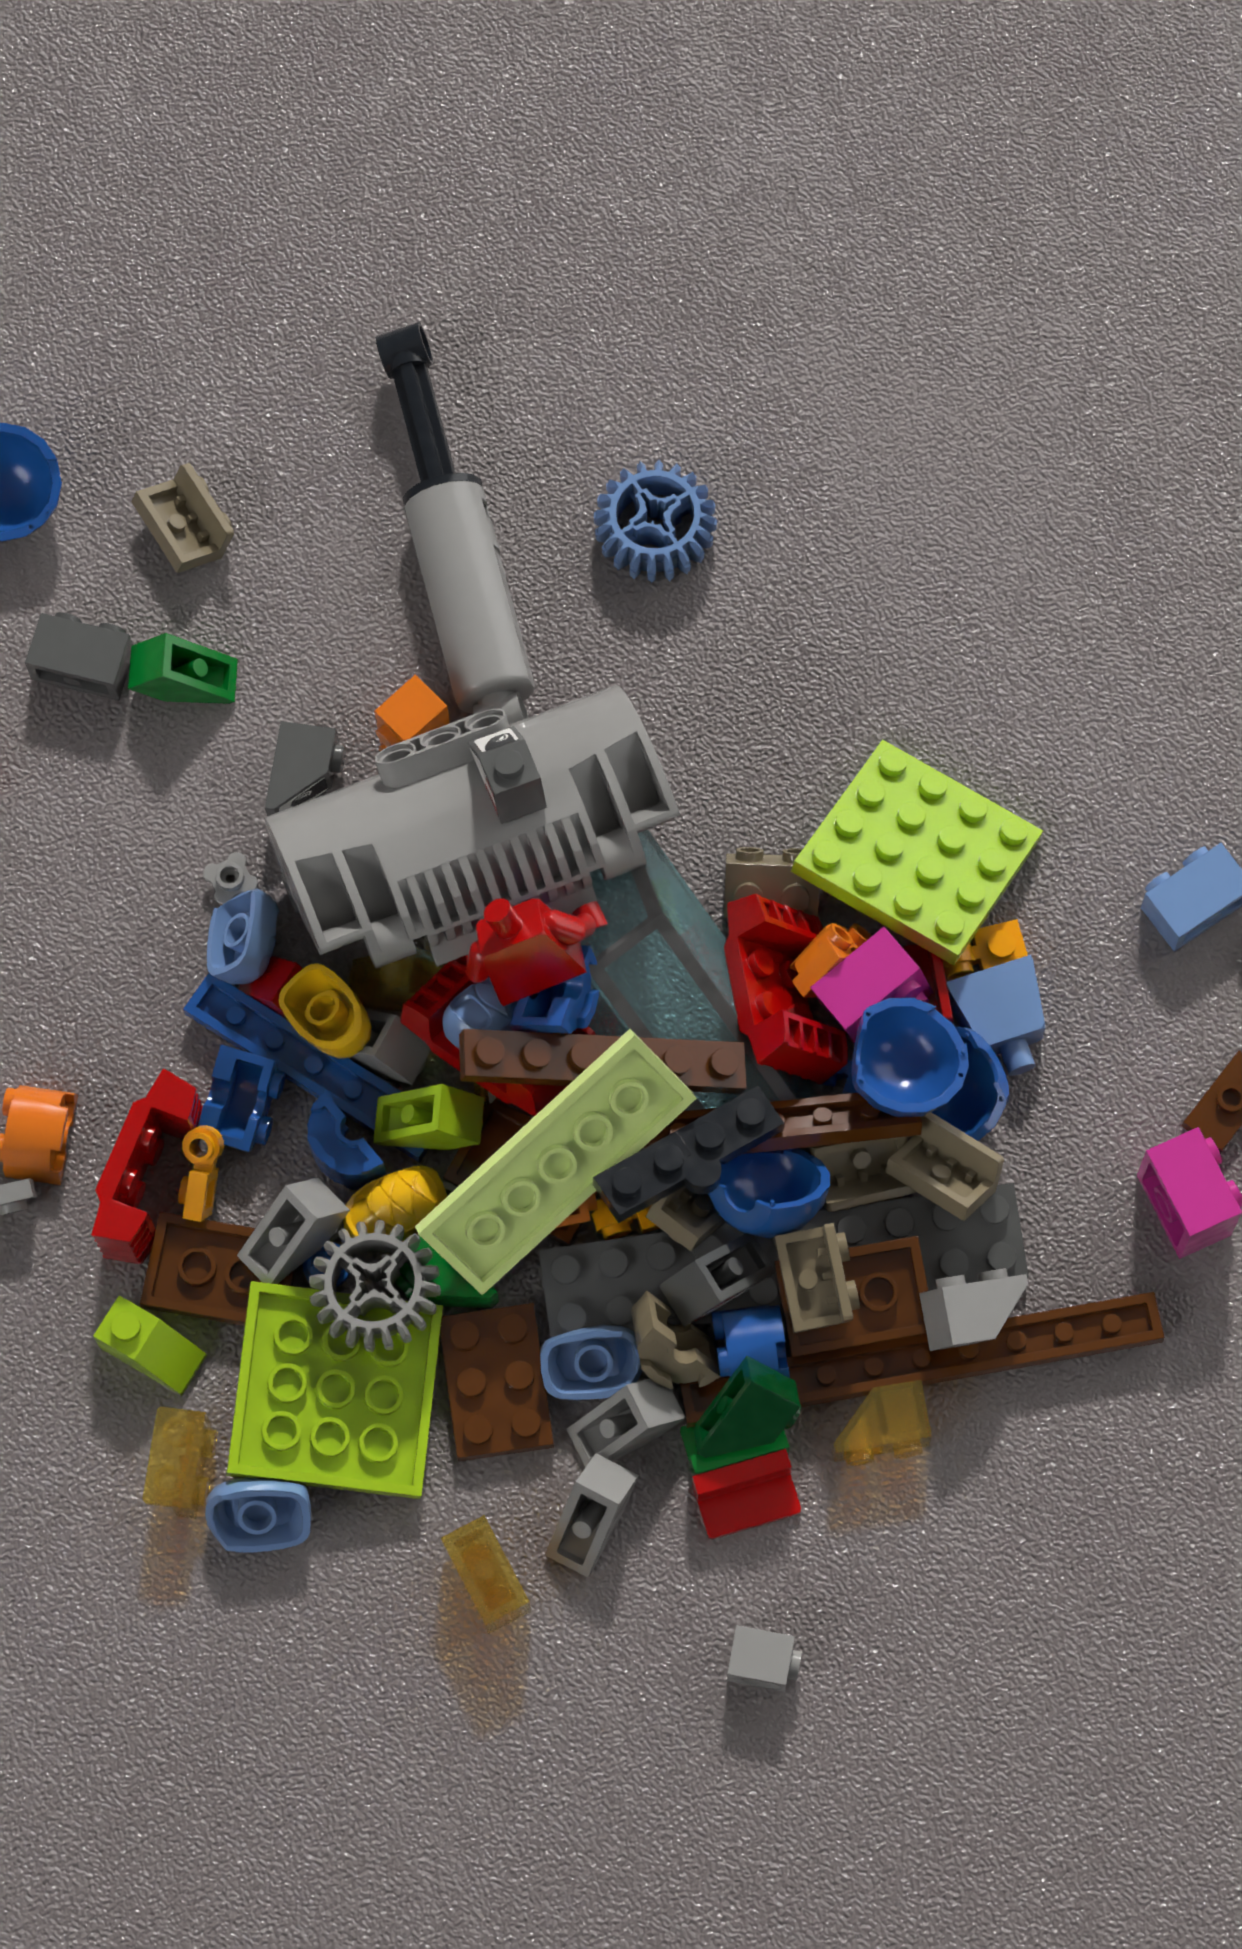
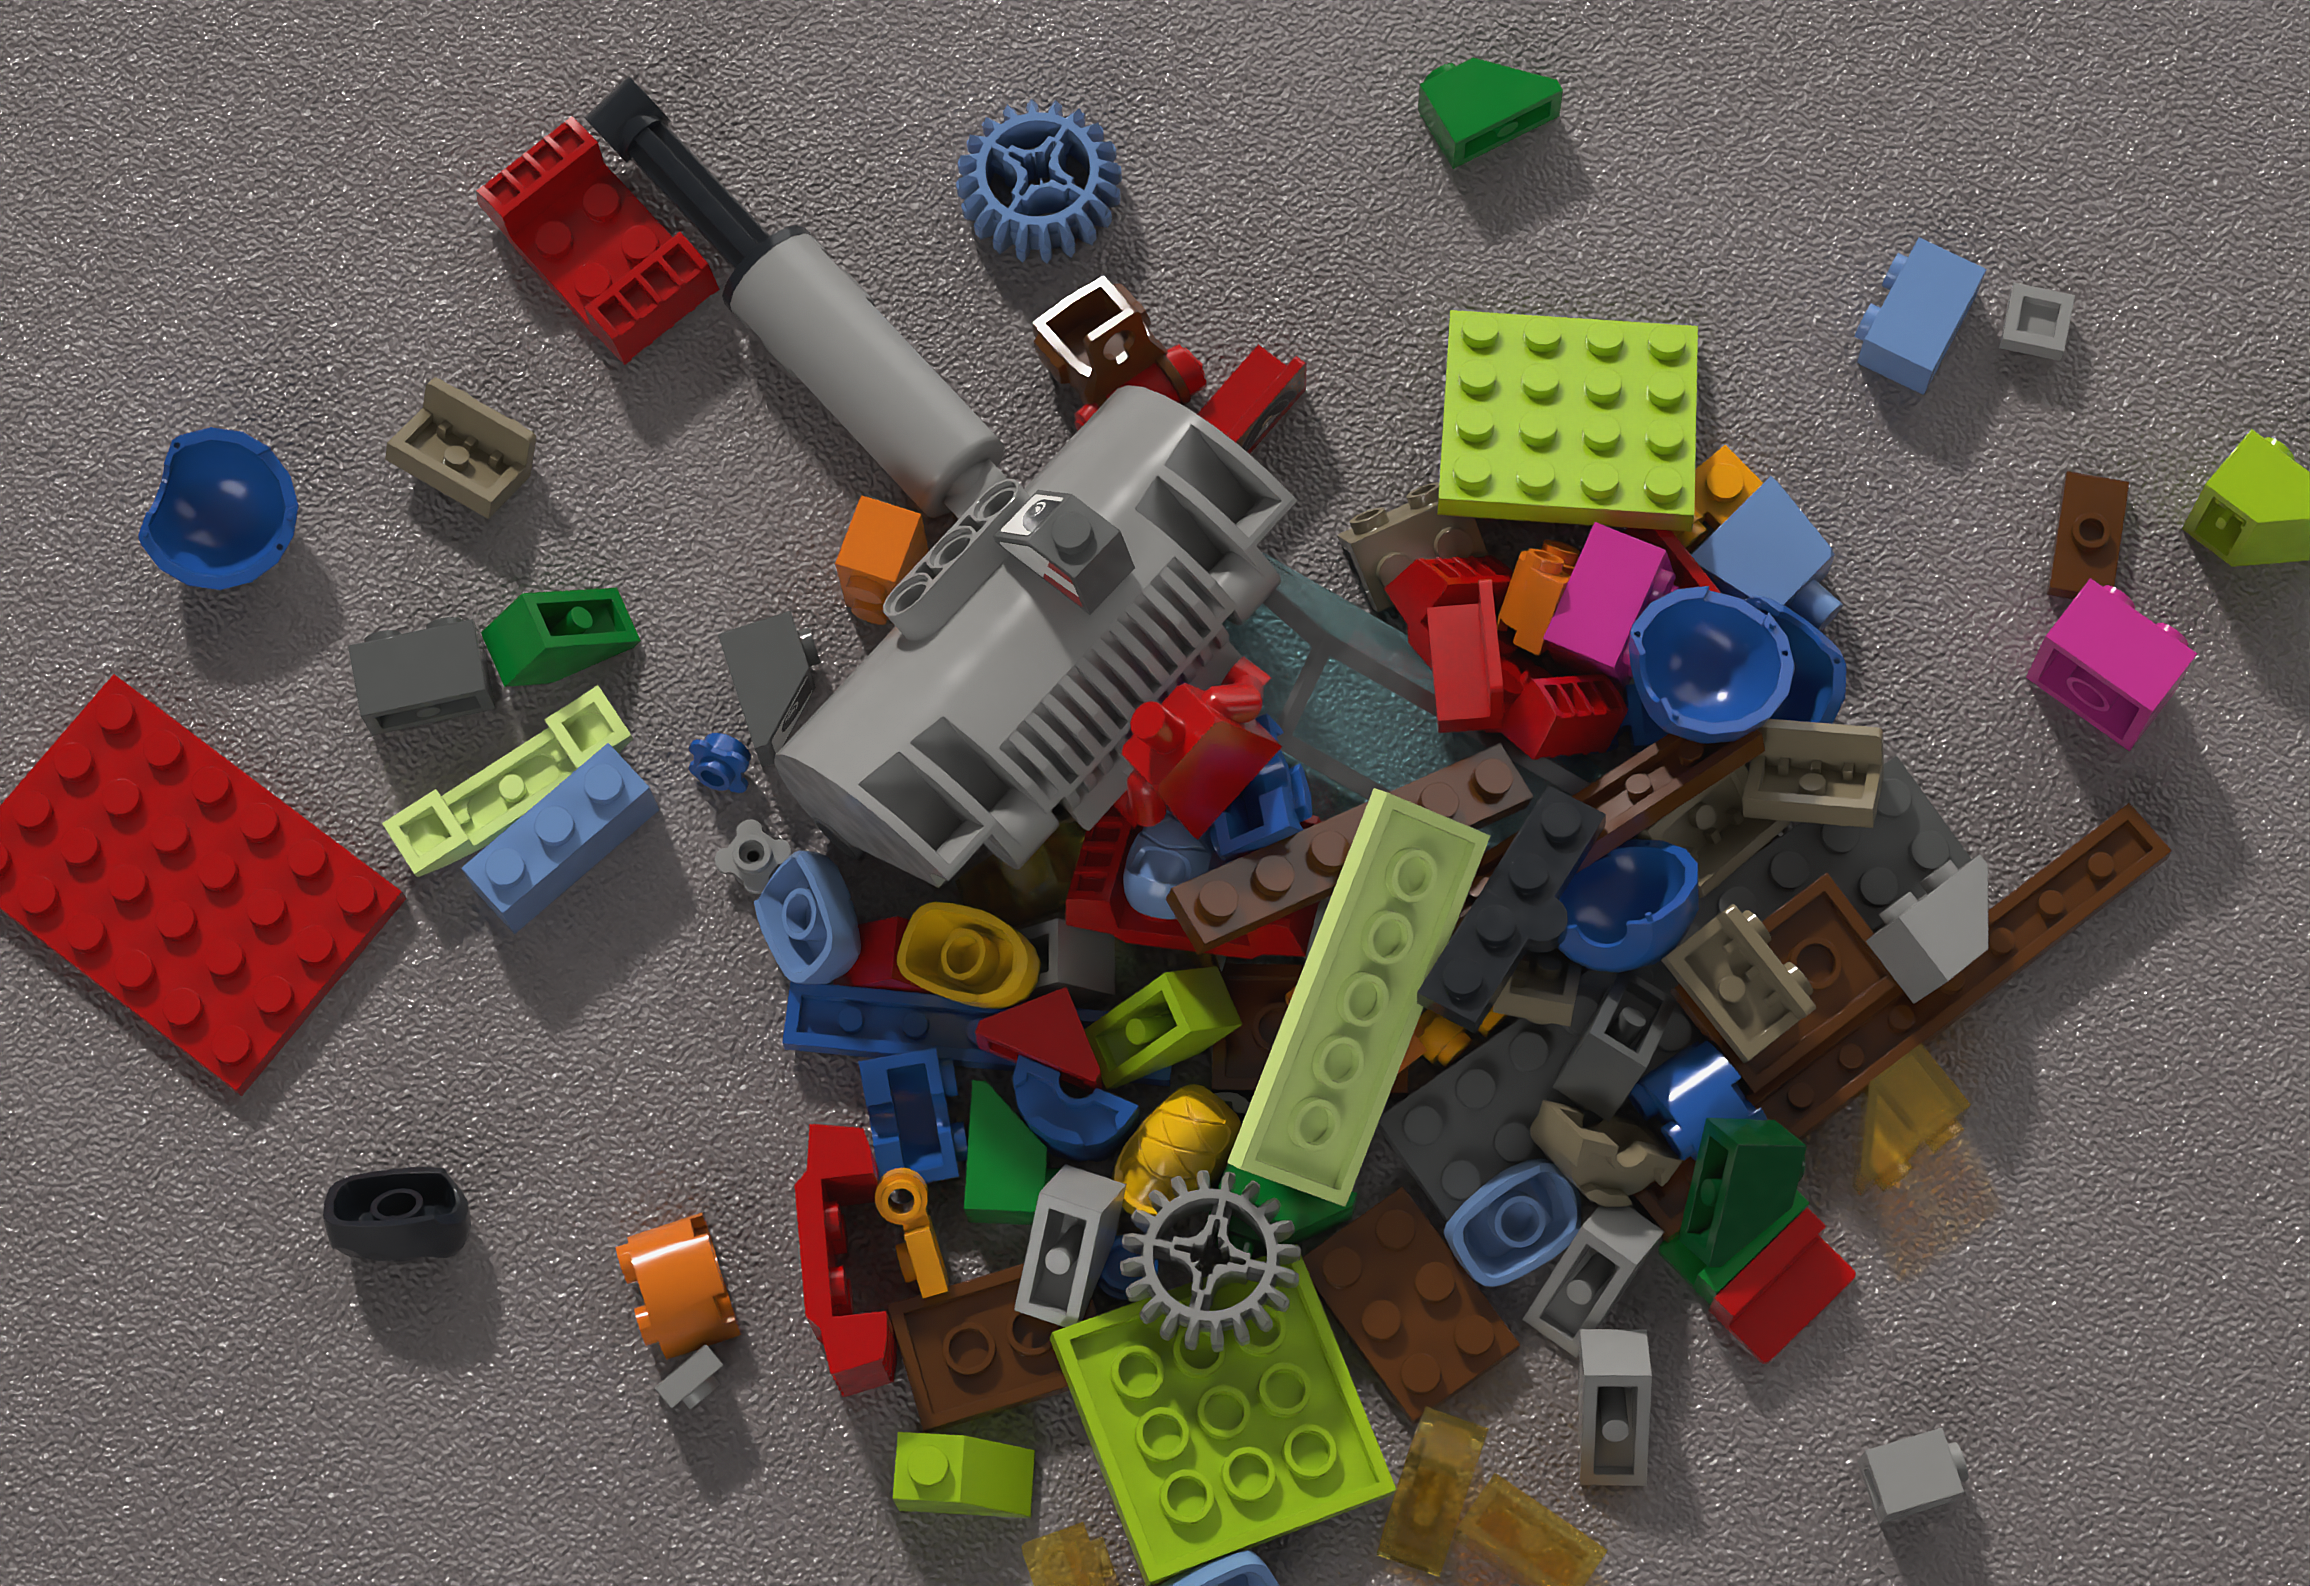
camera: 25 degrees left, 0 degrees up
(98, 758) = (477, 811): none -> yellowish green slope
(112, 805) = (561, 838): none -> medium blue brick
(241, 806) = (720, 762): none -> blue plate
(281, 1154) = (1003, 1162): none -> green slope
(343, 422) = (596, 242): none -> red plate
(351, 1086) = (1046, 1033): none -> red slope
(445, 1504) = (1432, 1491): none -> clear yellow slope
(637, 654) = (1104, 342): none -> reddish brown piece
(709, 740) = (1255, 397): none -> red panel
(747, 979) = (1466, 664): none -> red panel
(980, 613) = (1484, 106): none -> green slope

